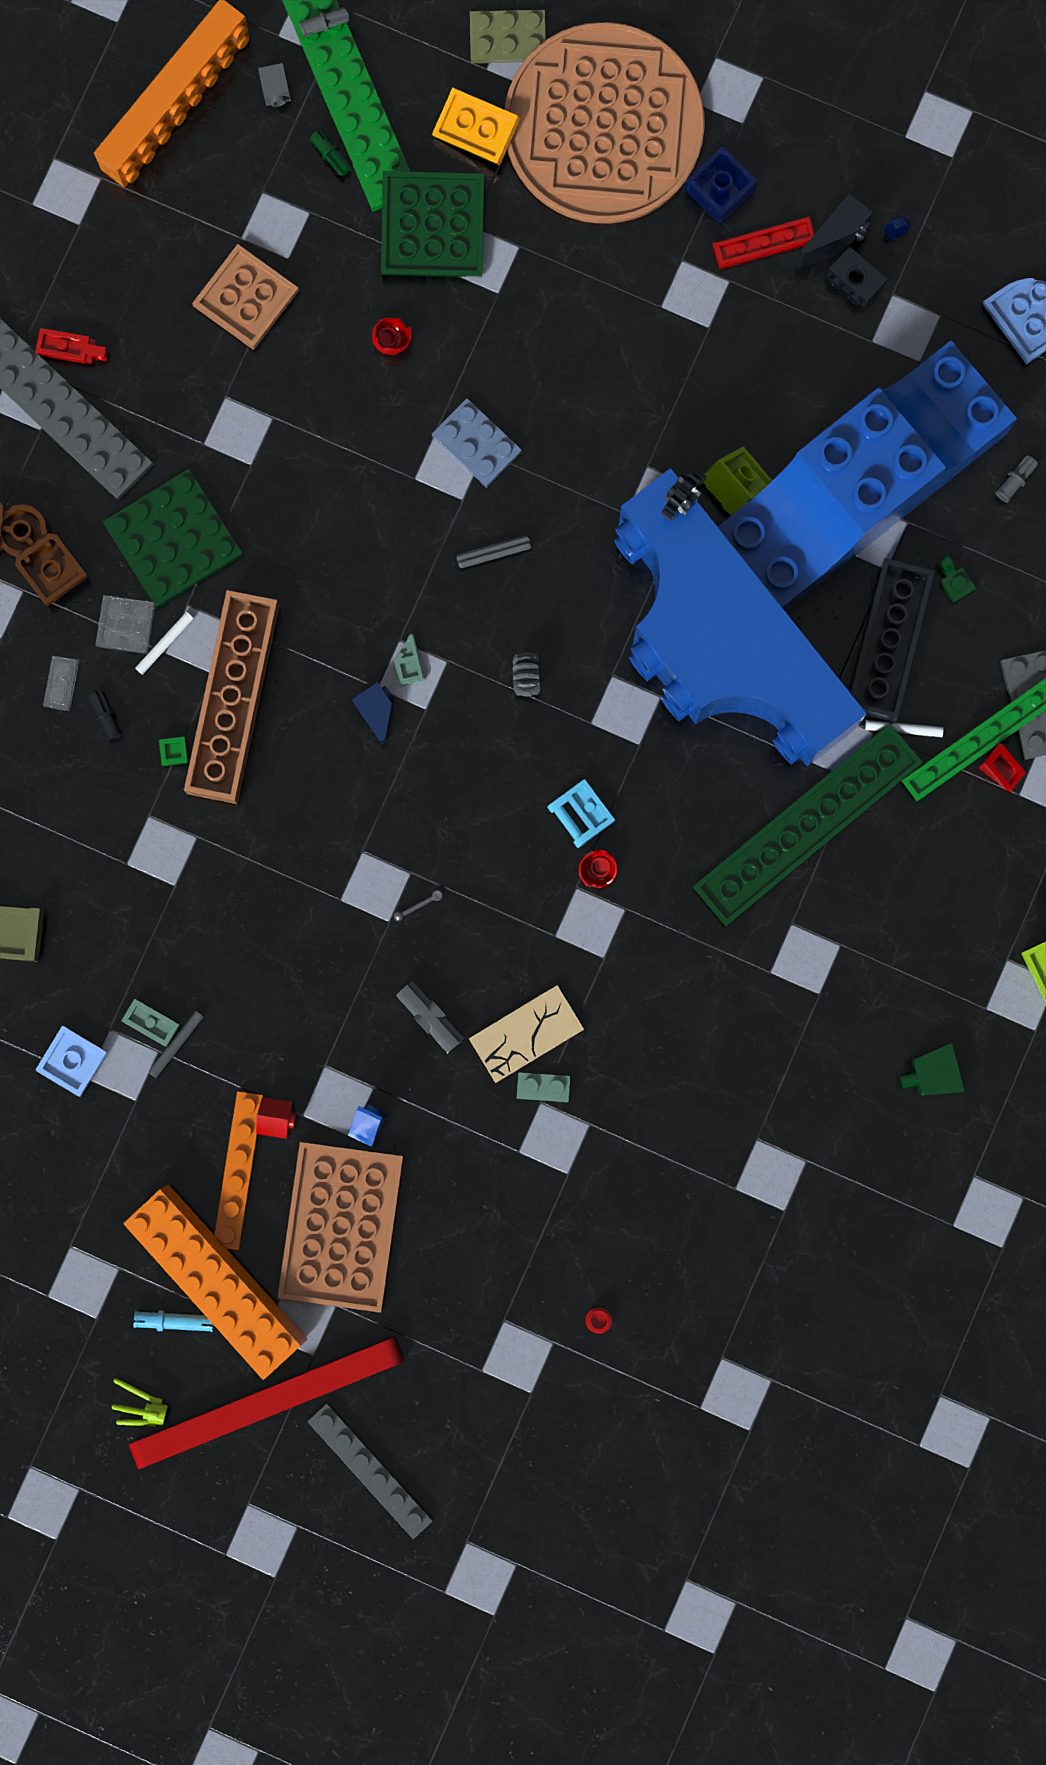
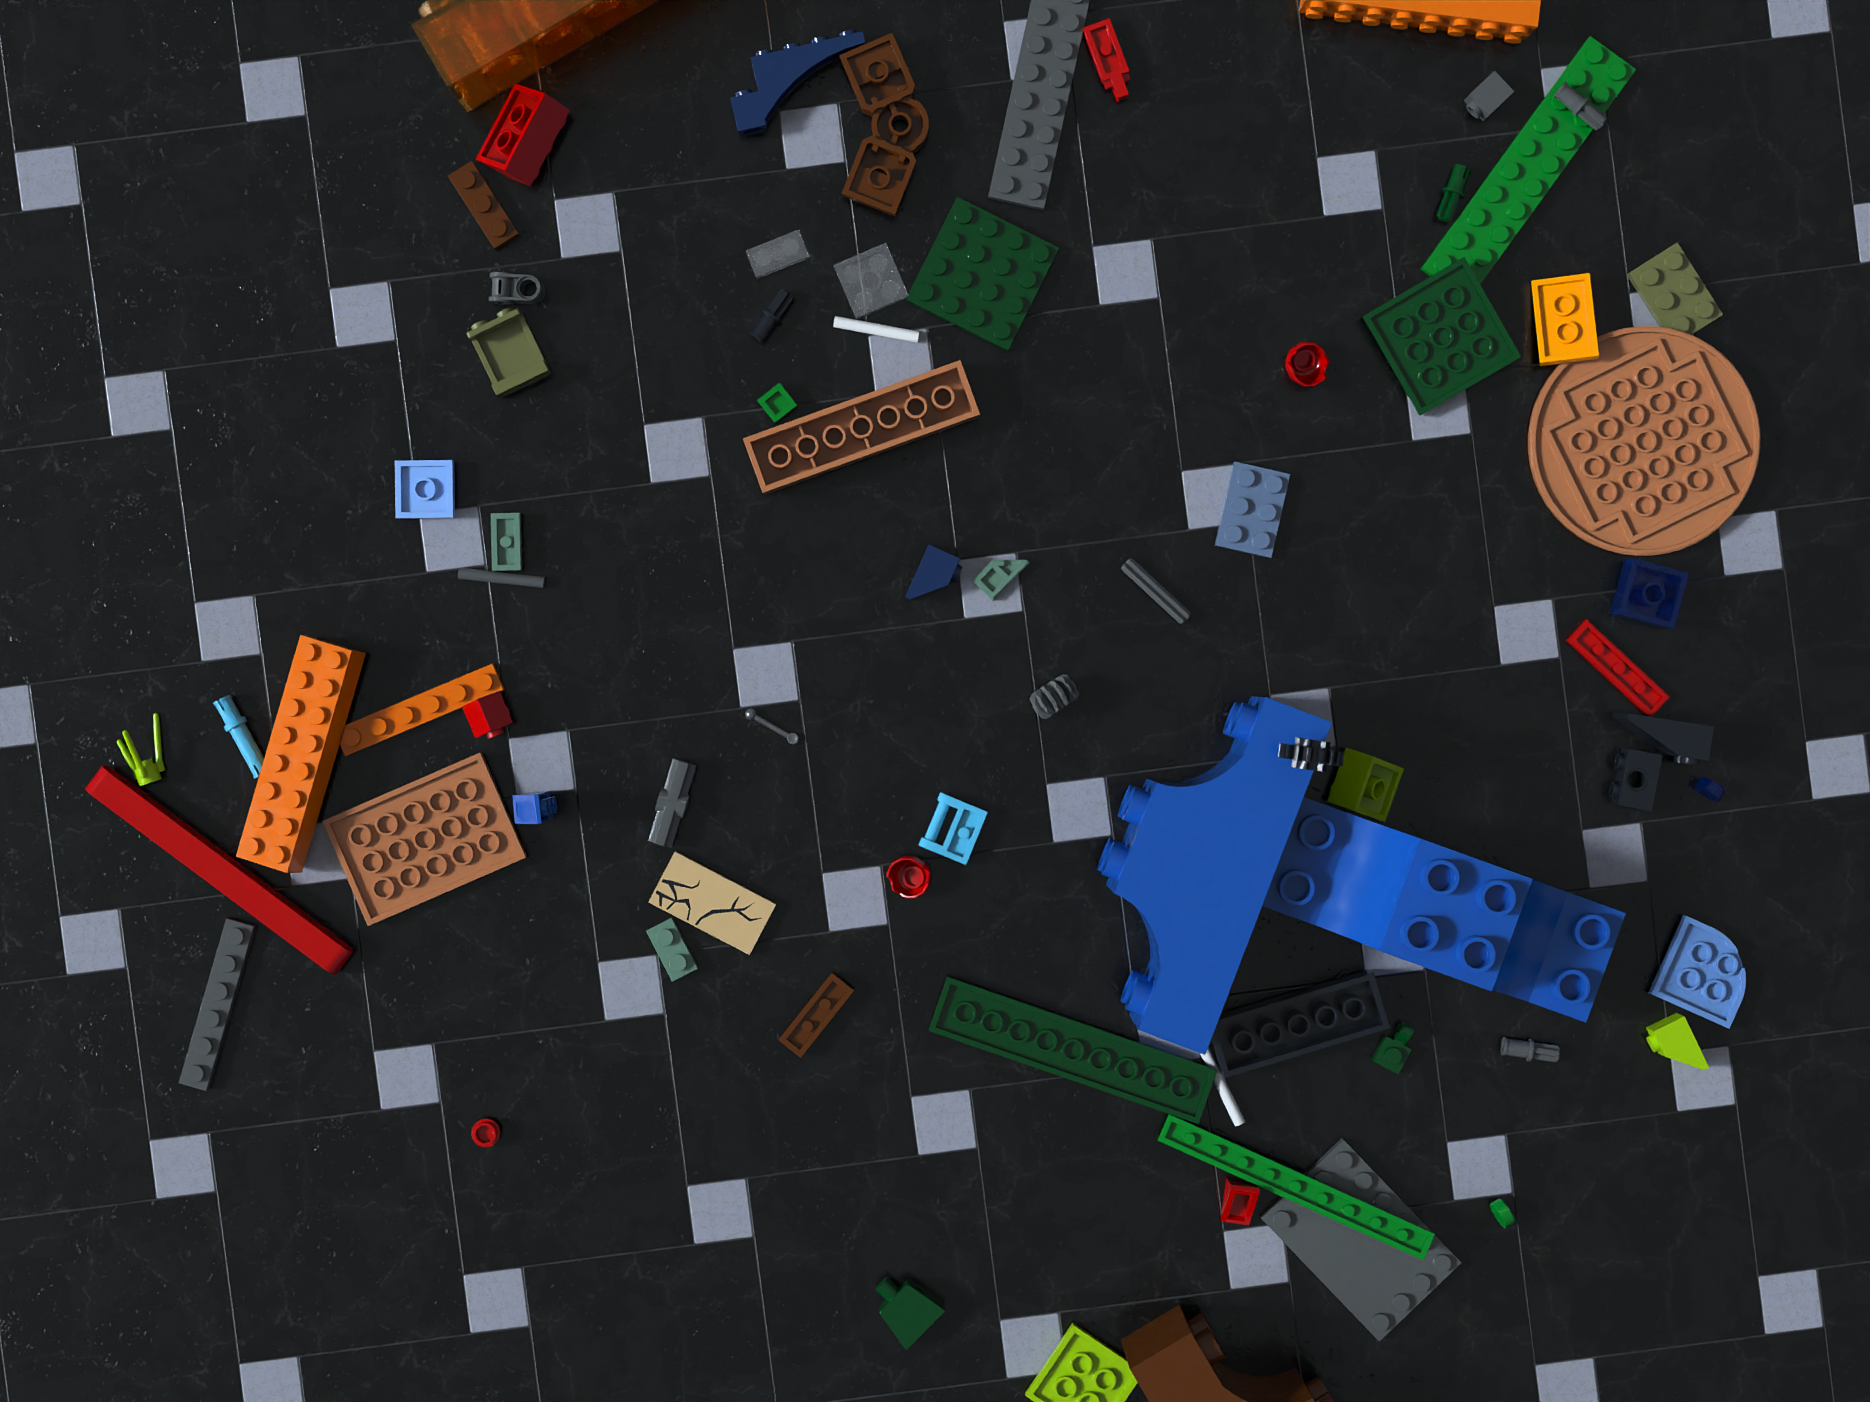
camera: 50 degrees right, 5 degrees up
(245, 296) = (1260, 198): nougat plate -> none
(661, 1005) = (816, 1014): none -> reddish brown plate

